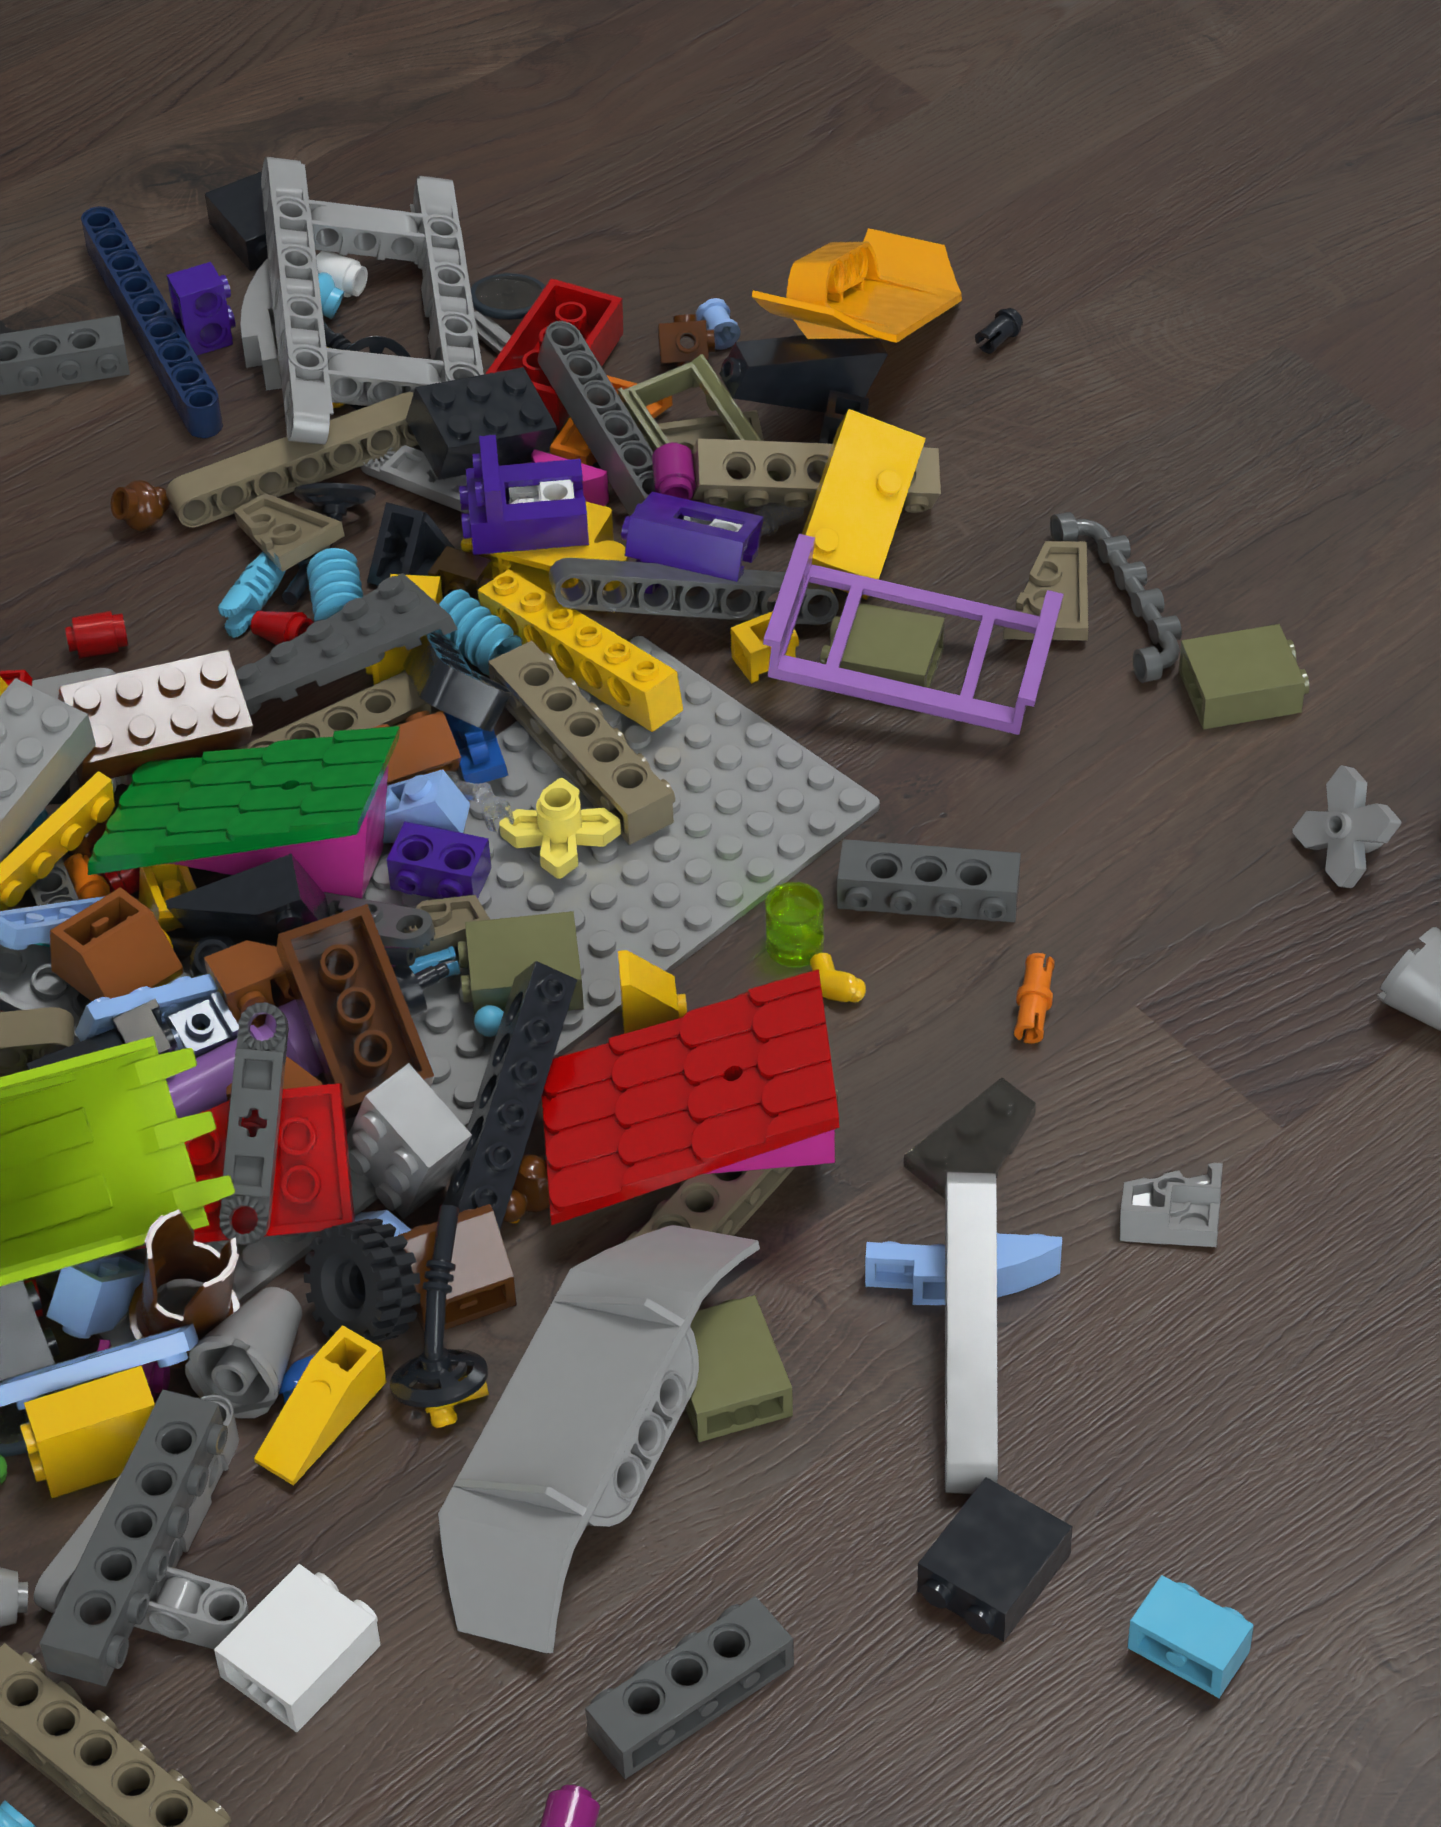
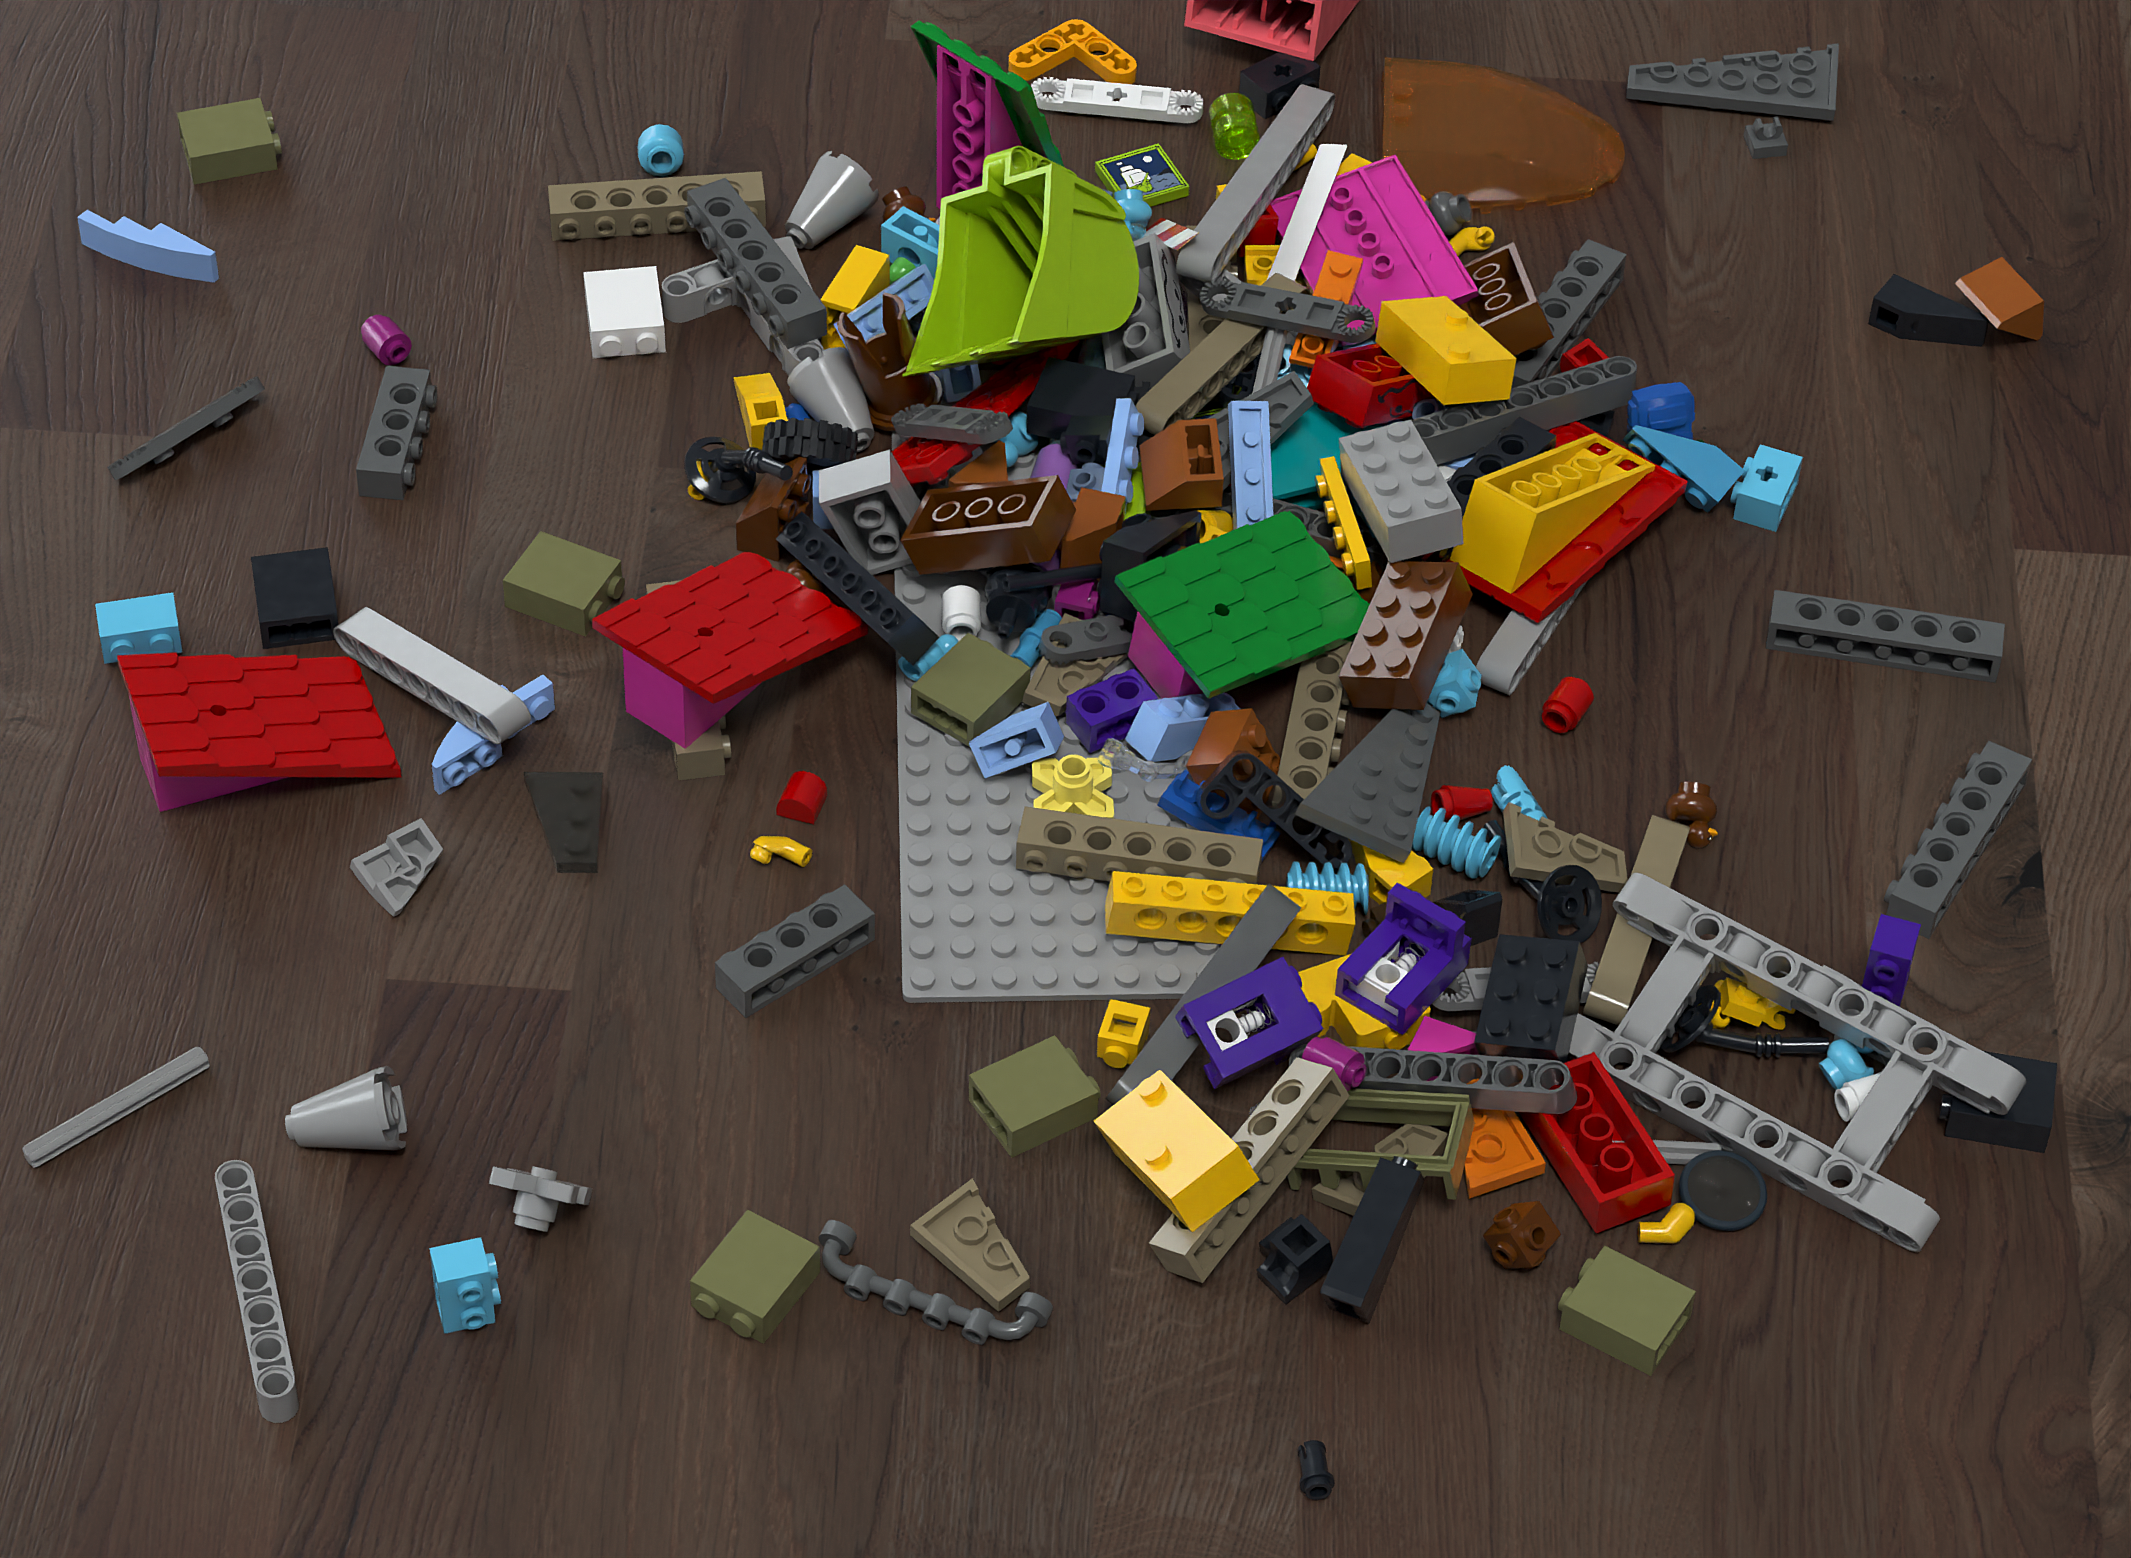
camera: 130 degrees right, 0 degrees up
(152, 323) = (1939, 954): dark blue beam -> none
(444, 1036) = (961, 611): none -> white brick
(545, 880) = (1017, 740): none -> light blue slope
(578, 1428) = (603, 488): light grey piece -> none
(647, 993) = (868, 726): yellow slope -> none
(676, 271) = (1626, 1309): none -> olive brick
(718, 318) = (1531, 1288): light blue bush -> none
(794, 923) = (841, 847): clear neon green wheel -> none
(867, 288) = (1406, 1332): light orange piece -> none
(892, 692) = (1099, 1003): medium lavender piece -> none
(1034, 998) = (634, 928): orange pin -> none
(1193, 1400) = (250, 721): none -> red piece

